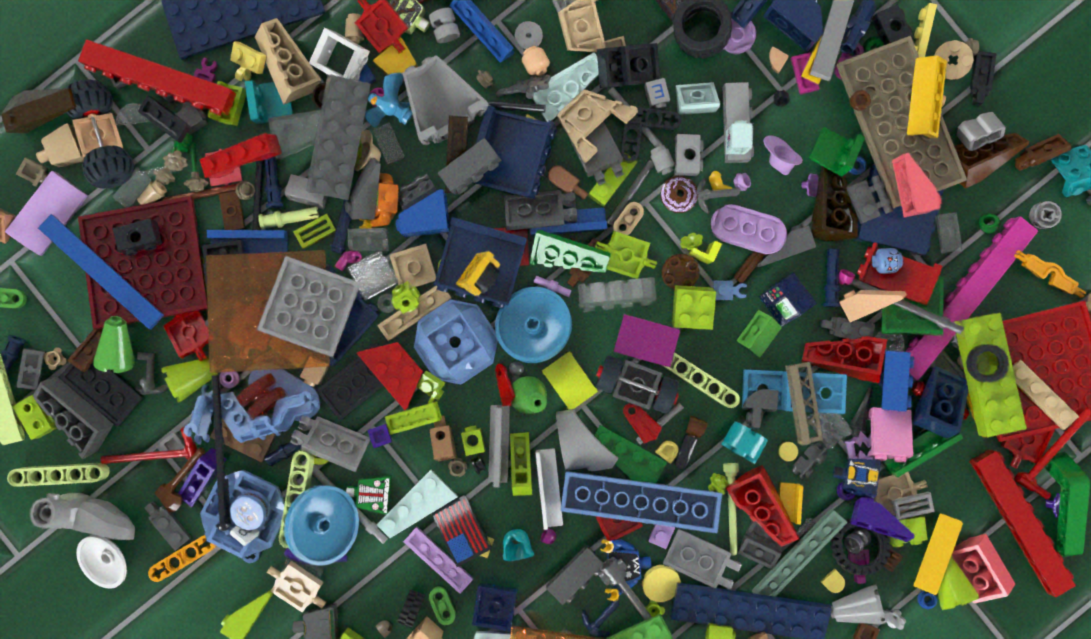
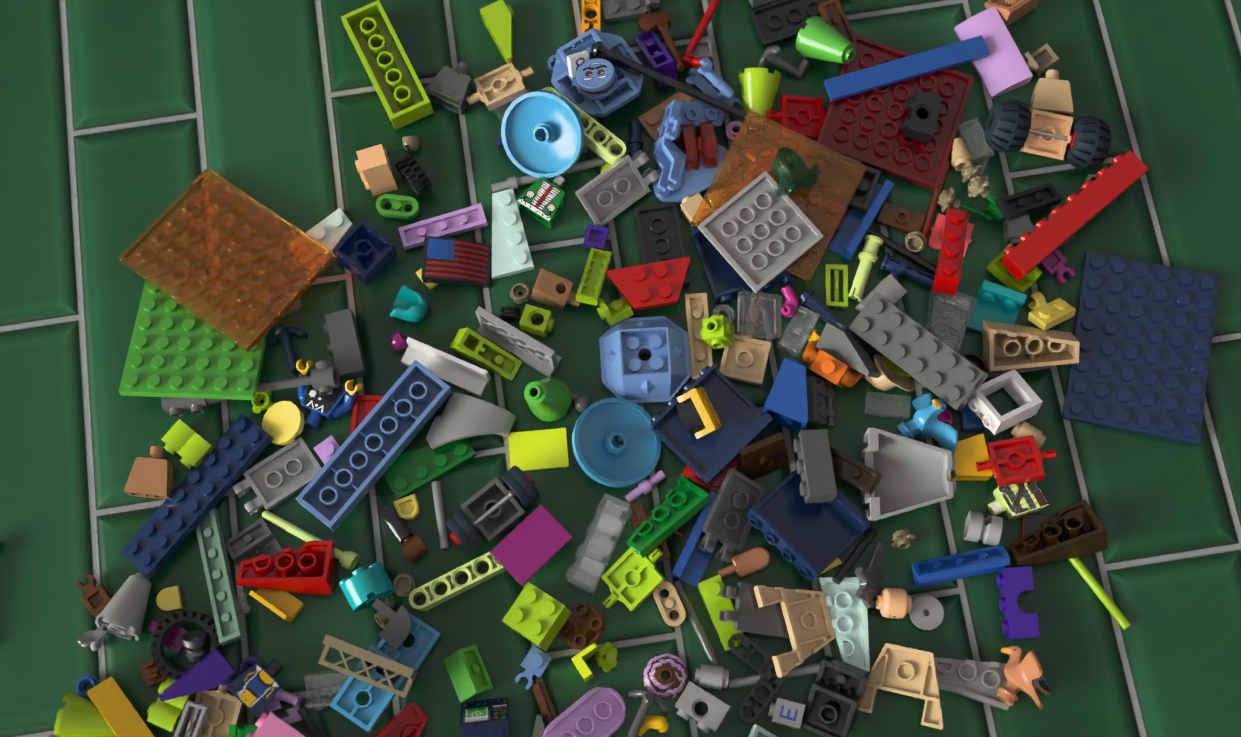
camera: 125 degrees right, 15 degrees down
(35, 108) = (1104, 91): dark brown wedge -> none
(130, 115) = (1052, 173): clear tile -> none
(247, 307) = (792, 172): none -> clear green pin
(482, 210) = (764, 456): none -> dark brown plate
(504, 385) = (574, 381): red piece -> none
(642, 423) = (448, 497): red piece -> none
(718, 483) = (343, 538): lime plant -> none
(725, 418) = (403, 585): none -> dark tan plate
(787, 451) = (329, 627): light yellow tile -> none
(815, 456) = (301, 638): dark grey hinge -> none

